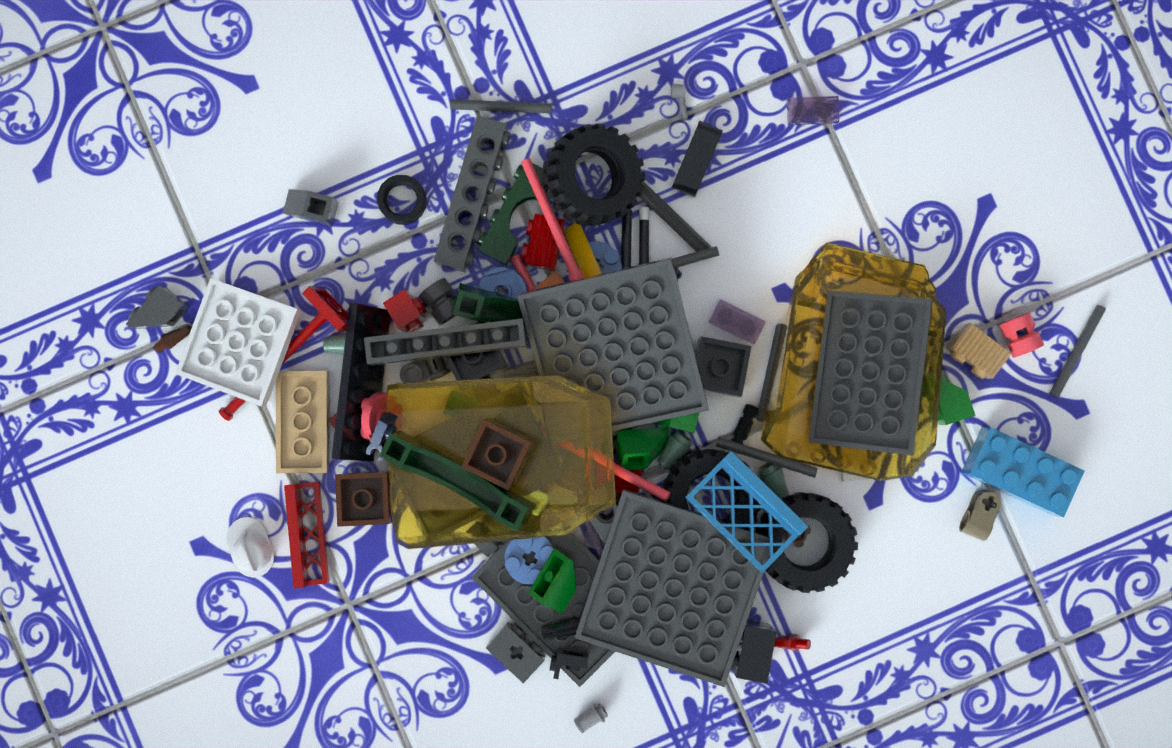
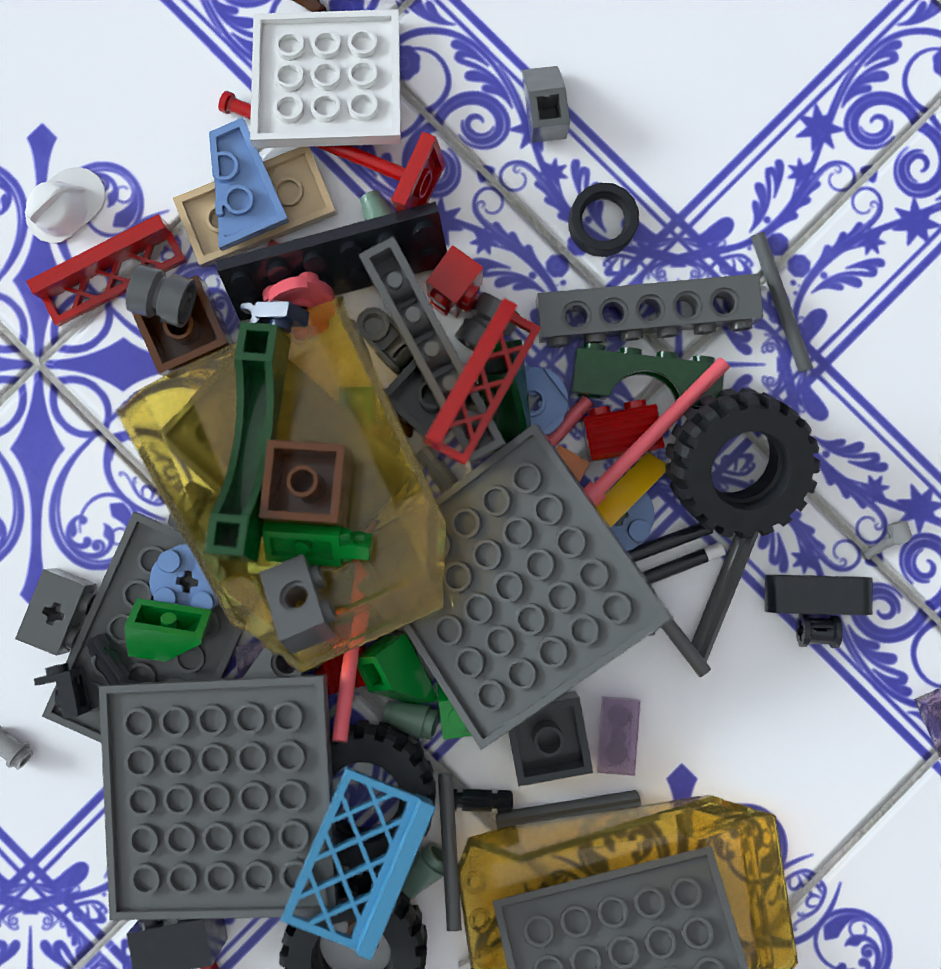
camera: 70 degrees right, 0 degrees up
(288, 423) = (243, 189): none -> medium blue wing
(341, 500) = (154, 293): none -> dark grey wheel
(470, 322) = (466, 380): none -> red fence
(538, 464) = (316, 542): none -> green hinge
(557, 488) = (284, 588): none -> dark grey brick
(720, 167) = (810, 631): none -> black bush

